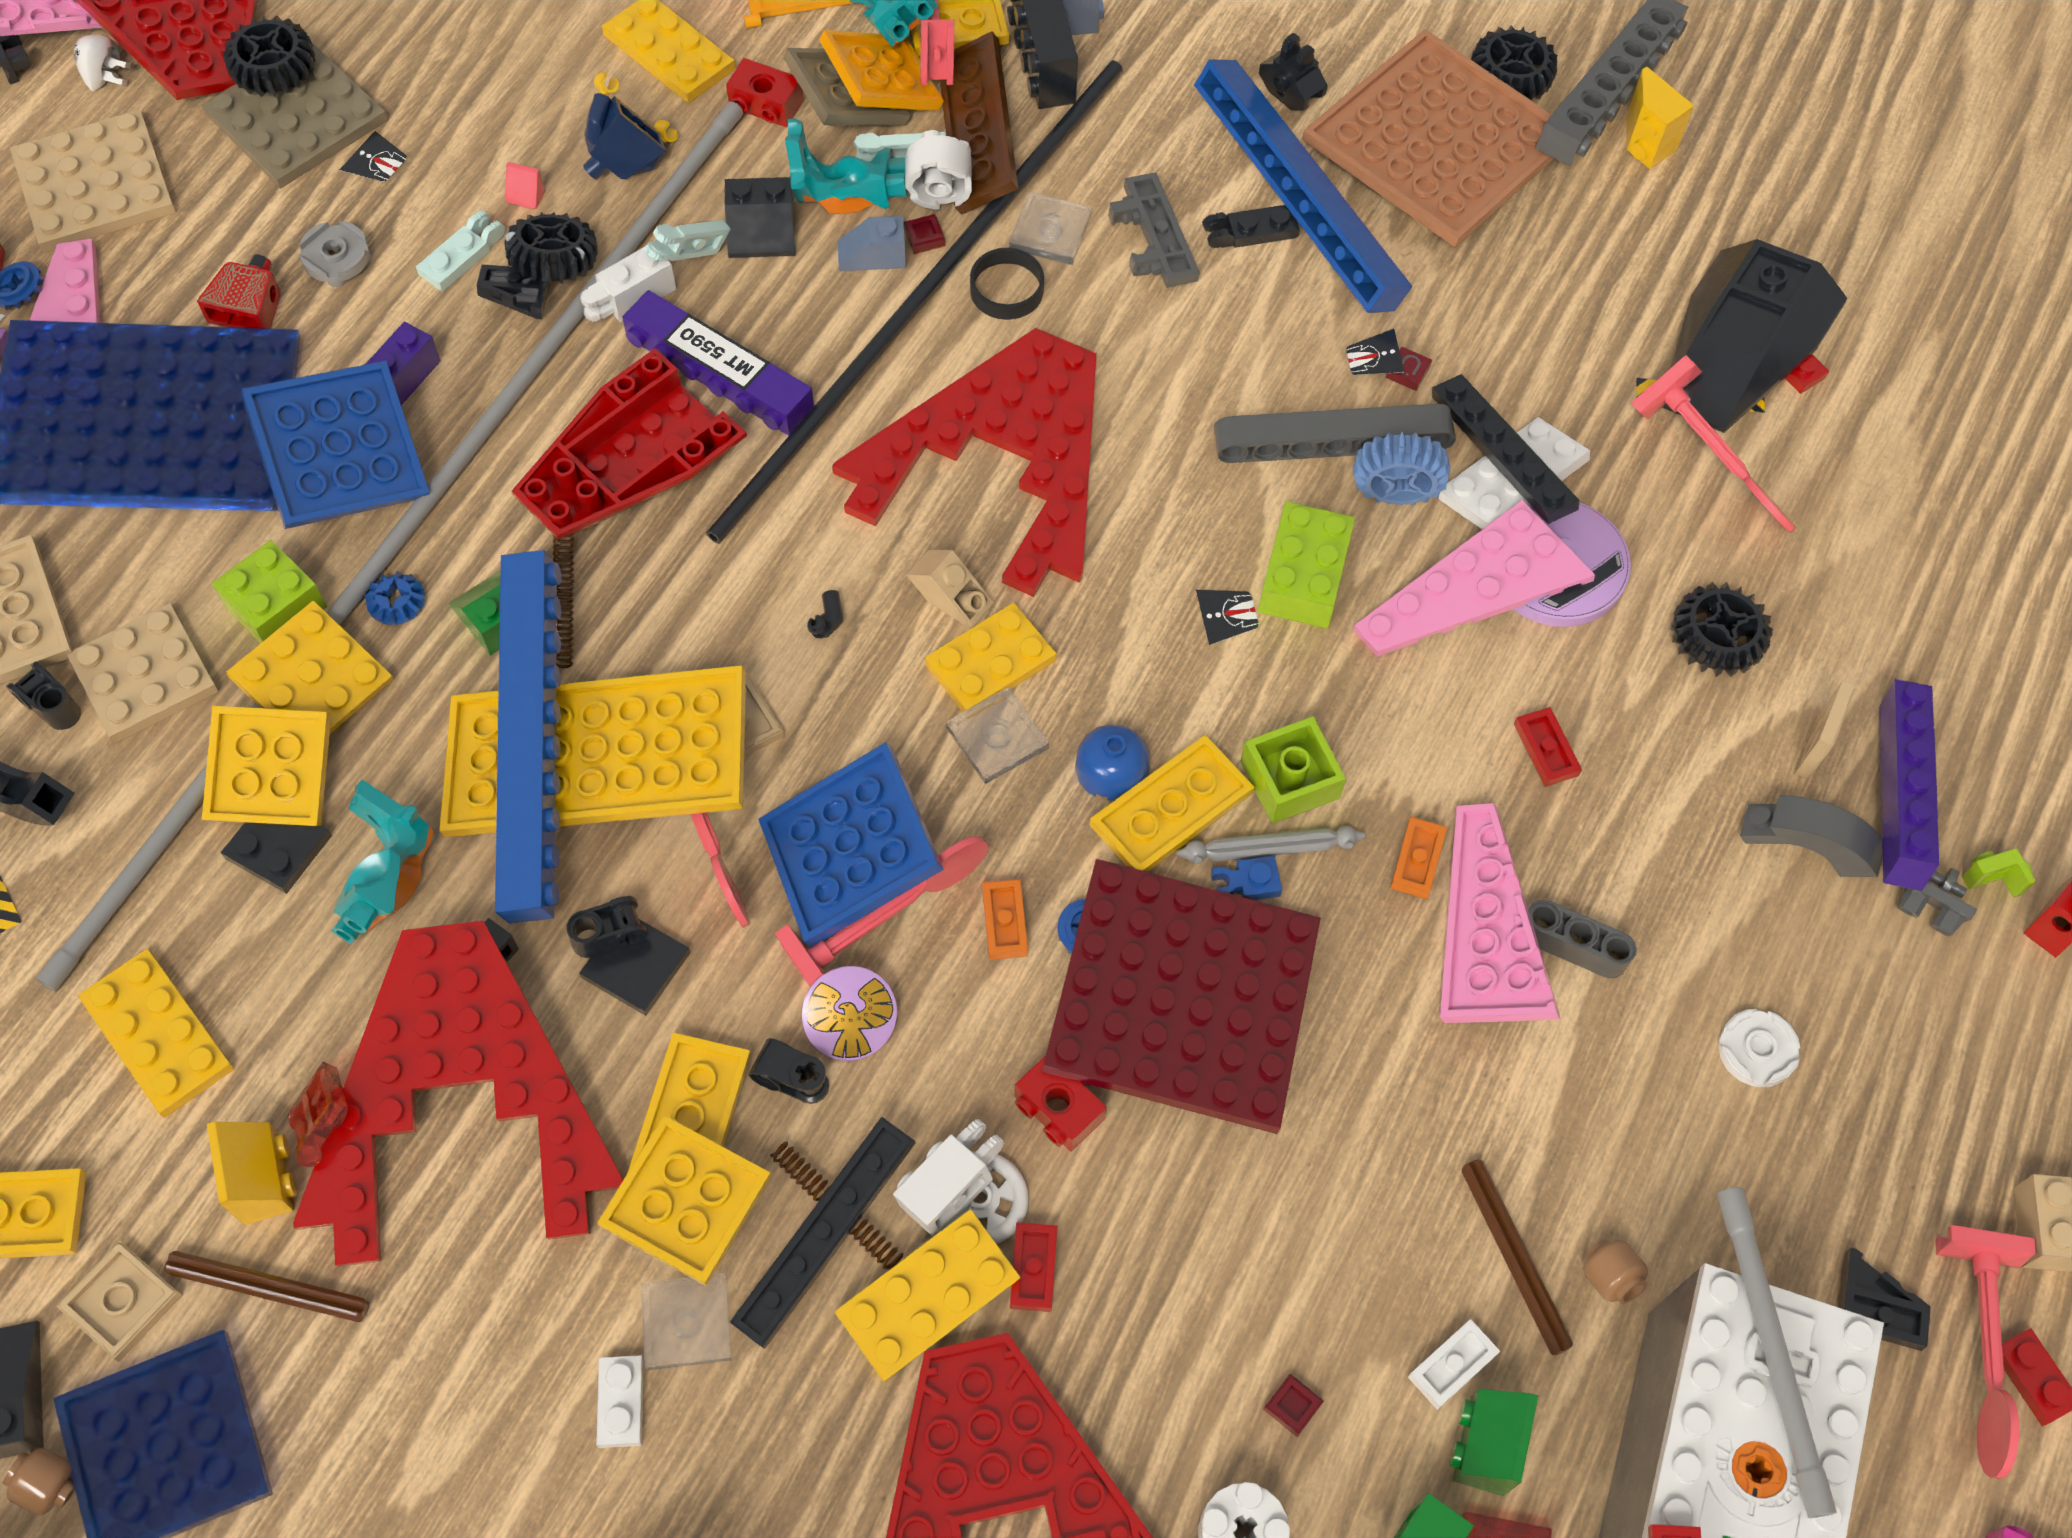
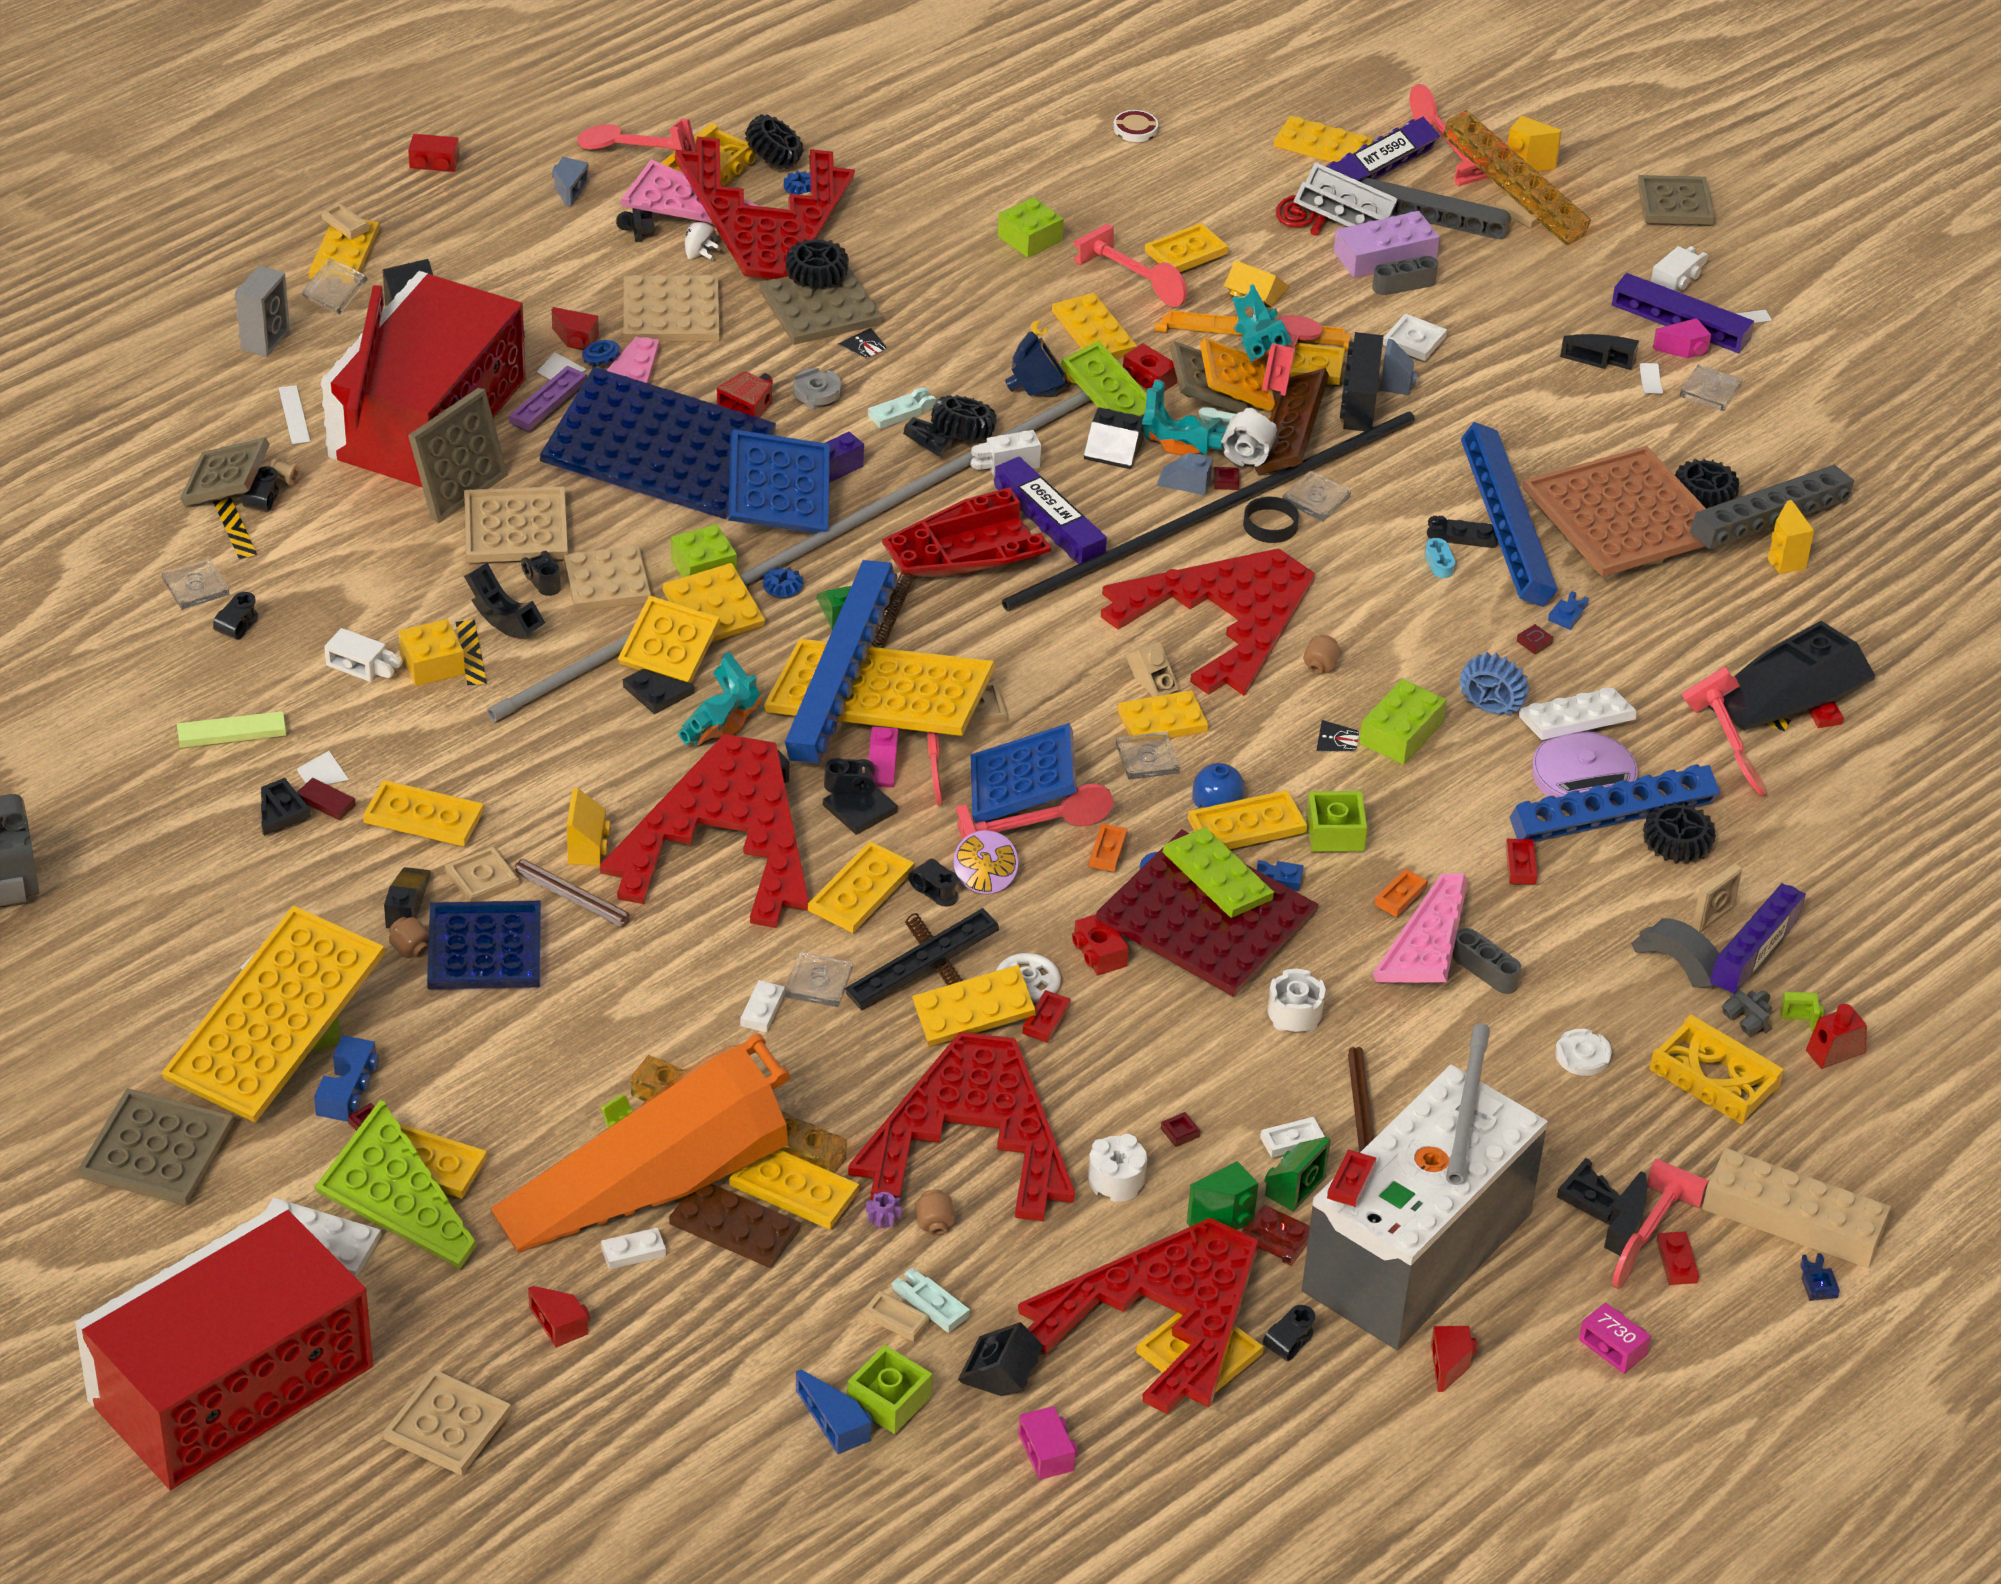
camera: 20 degrees right, 20 degrees down
(155, 1033) = (549, 756): yellow plate -> none
(316, 1113) = (641, 807): clear red plate -> none
(523, 185) = (959, 381): coral slope -> none
(639, 868) = (884, 755): none -> dark pink slope
(684, 1200) = (843, 915): yellow plate -> none
(687, 240) = (1058, 435): light aqua hinge -> none
(720, 133) = (1105, 380): none -> lime plate
(831, 619) = (1066, 667): black arm -> none
(948, 1178) = (1012, 949): white hinge -> none
(1159, 486) = (1322, 654): none -> medium nougat head
(1167, 247) = (1395, 515): dark grey hinge -> none
(1178, 926) = (1218, 872): none -> lime plate
(1236, 278) = (1435, 559): none -> medium azure beam
(1270, 844) = (1309, 860): light grey wheel -> none
(1295, 73) = (1535, 447): black hinge -> none
(1325, 432) = (1449, 655): dark grey beam -> none
(1374, 1094) = (1296, 1001): none -> white brick
(1375, 355) = (1514, 625): black sticker -> none
(1430, 311) = (1568, 613): none -> blue plate
(1485, 576) = (1520, 758): bright pink wing -> none
(1506, 449) = (1574, 692): black plate -> none
(1720, 550) = (1581, 819): none -> blue brick
(1952, 1333) = (1626, 1215): none -> black slope
(1962, 990) = (1714, 1046): none -> yellow fence

